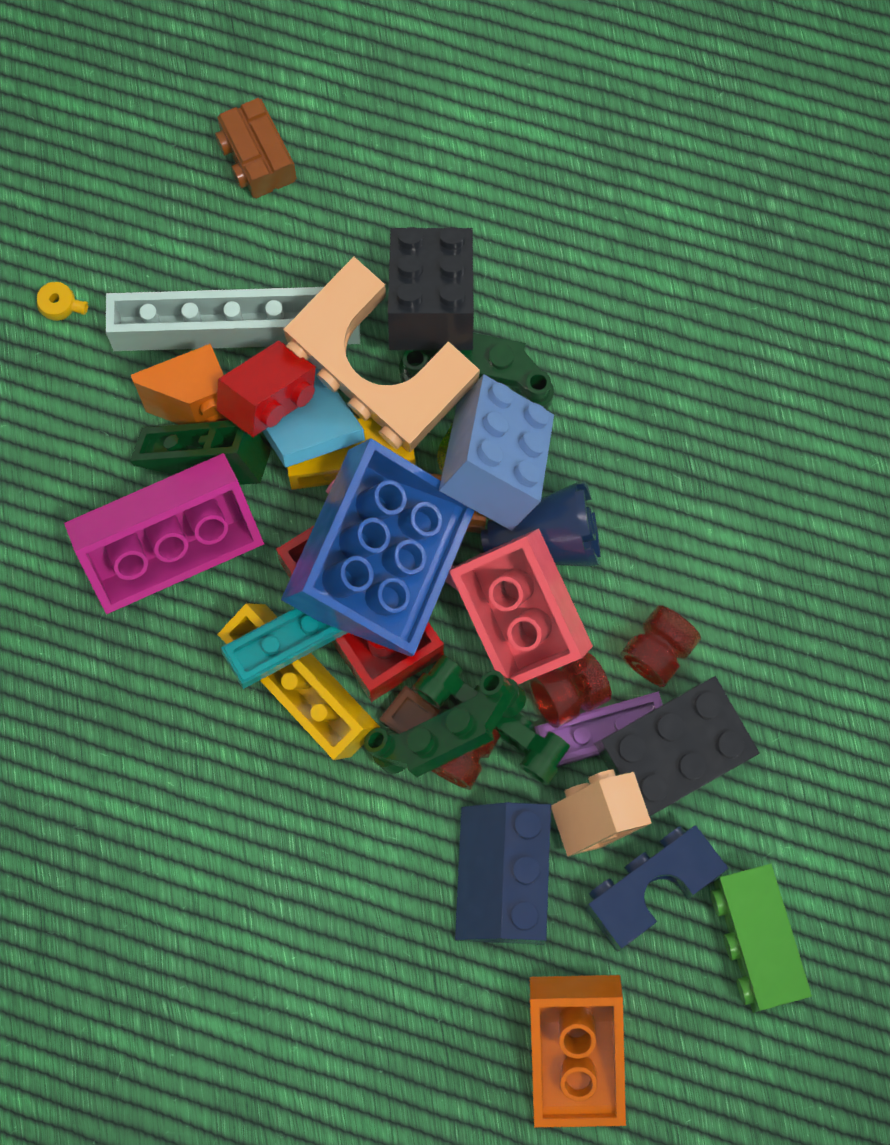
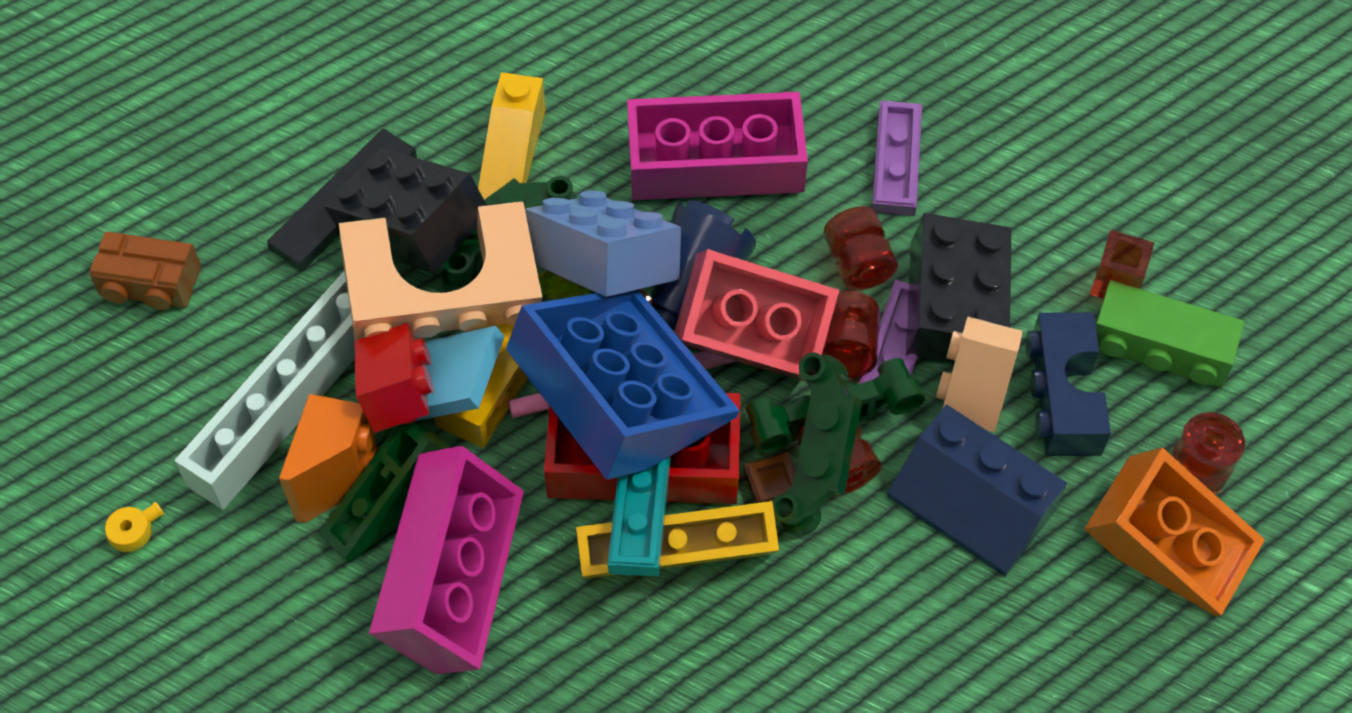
camera: 55 degrees left, 15 degrees down
(370, 229) = (311, 226): none -> black tile
(568, 312) = (512, 131): none -> yellow slope
(663, 1035) = (1210, 448): none -> clear red wheel
(672, 470) = (716, 145): none -> dark pink brick
(783, 617) = (897, 158): none -> medium lavender tile
(796, 864) = (1123, 261): none -> clear red brick

